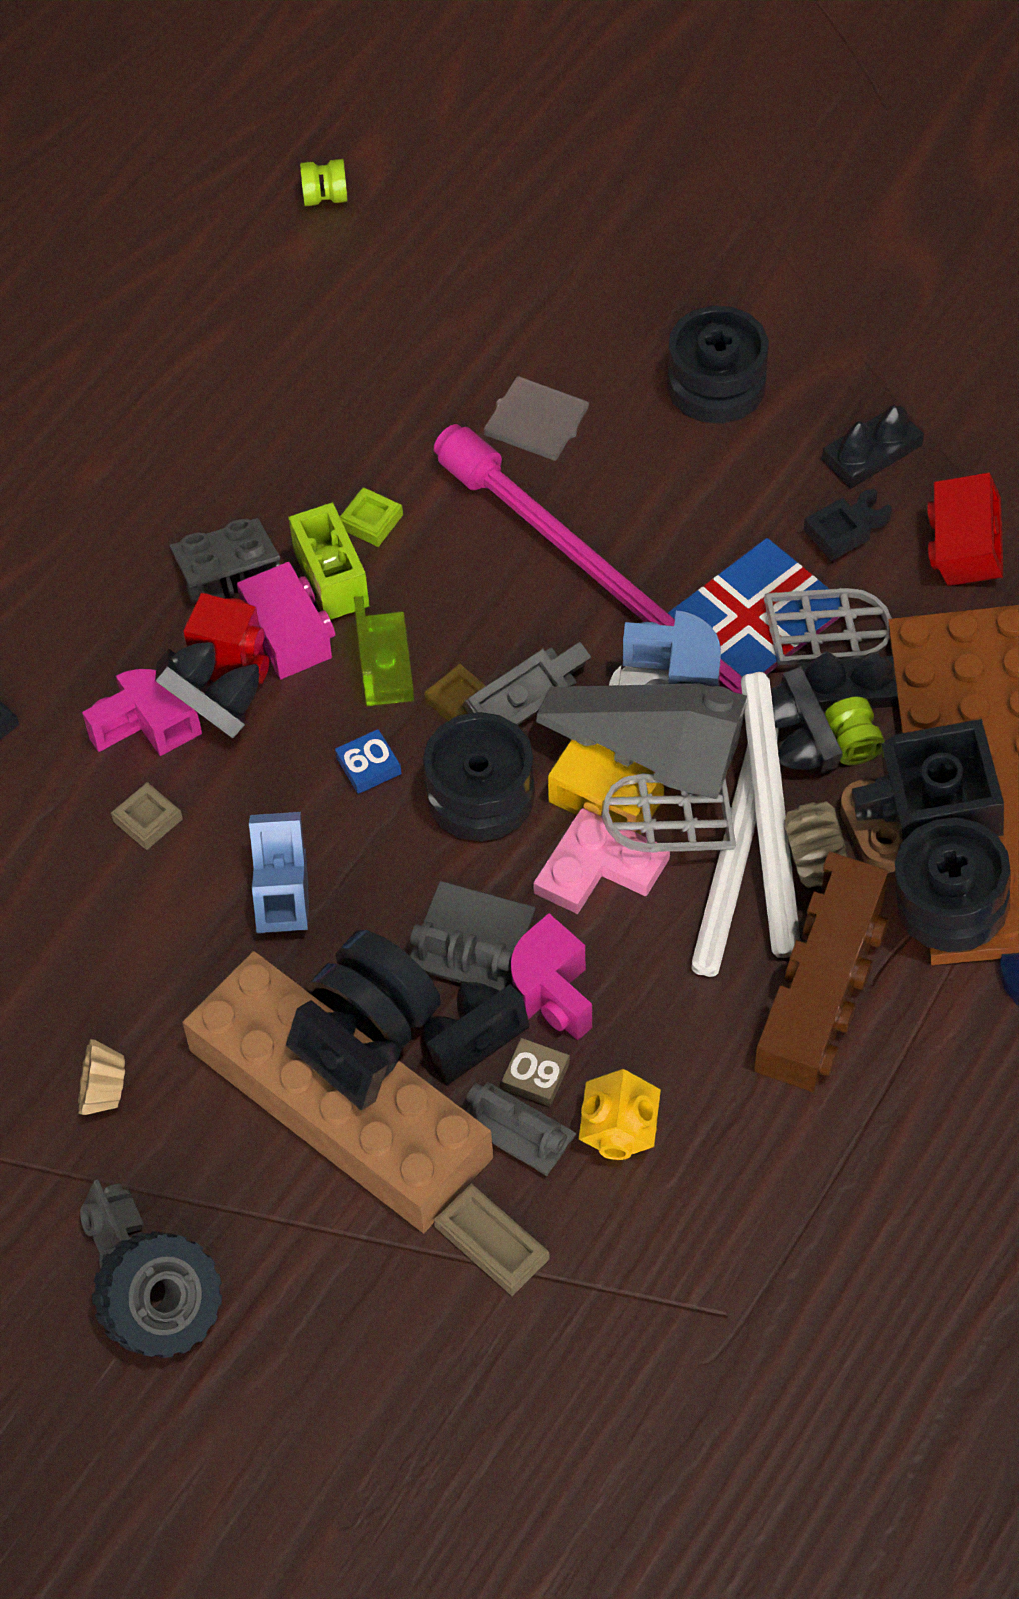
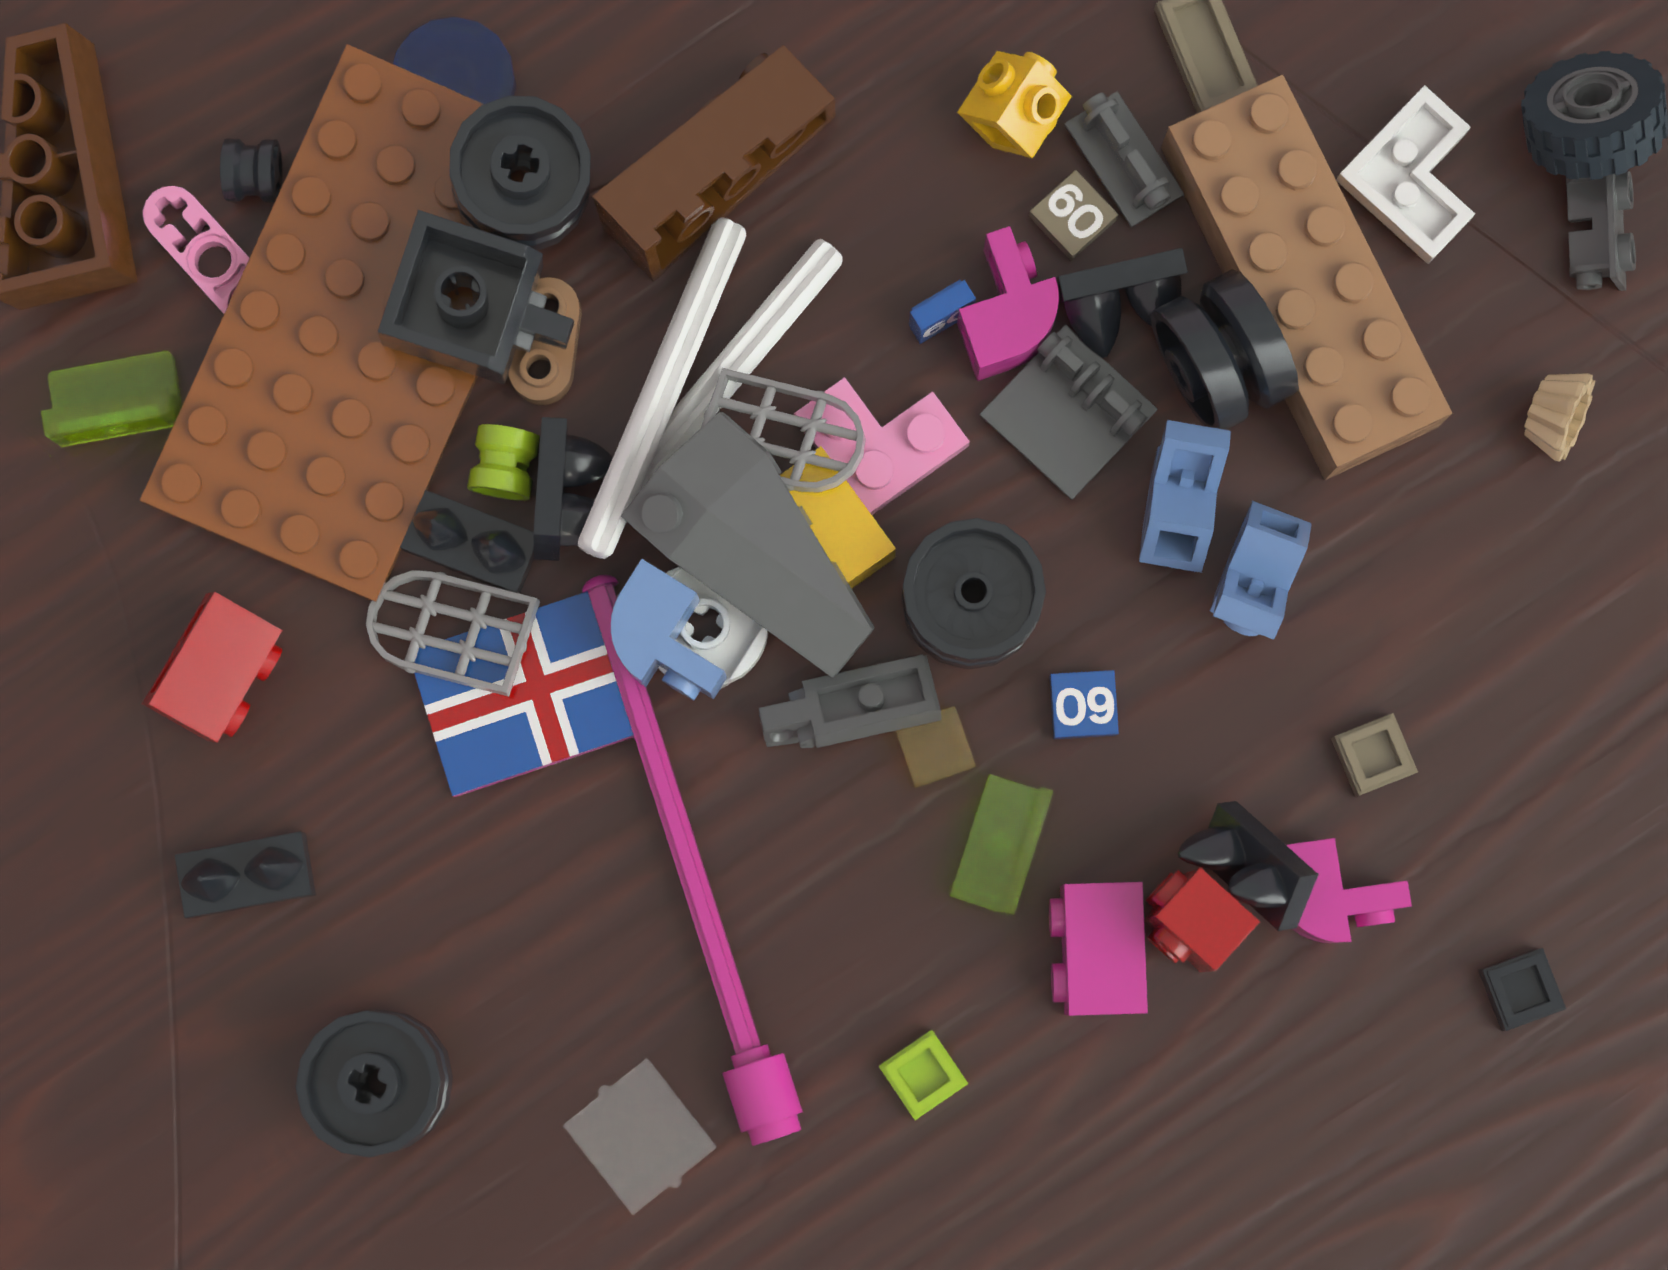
camera: 155 degrees left, 25 degrees up
(222, 553) = (1135, 1093): dark grey hinge -> none
(299, 1206) = (1396, 180): none -> white plate
(328, 560) = (1016, 999): lime brick -> none
(333, 1051) = (1289, 237): black tile -> none
(358, 898) = (1183, 496): none -> medium blue brick
(598, 955) = (940, 310): none -> blue tile
(812, 834) = (632, 319): dark tan gear -> none
(845, 527) = (355, 763): black plate -> none

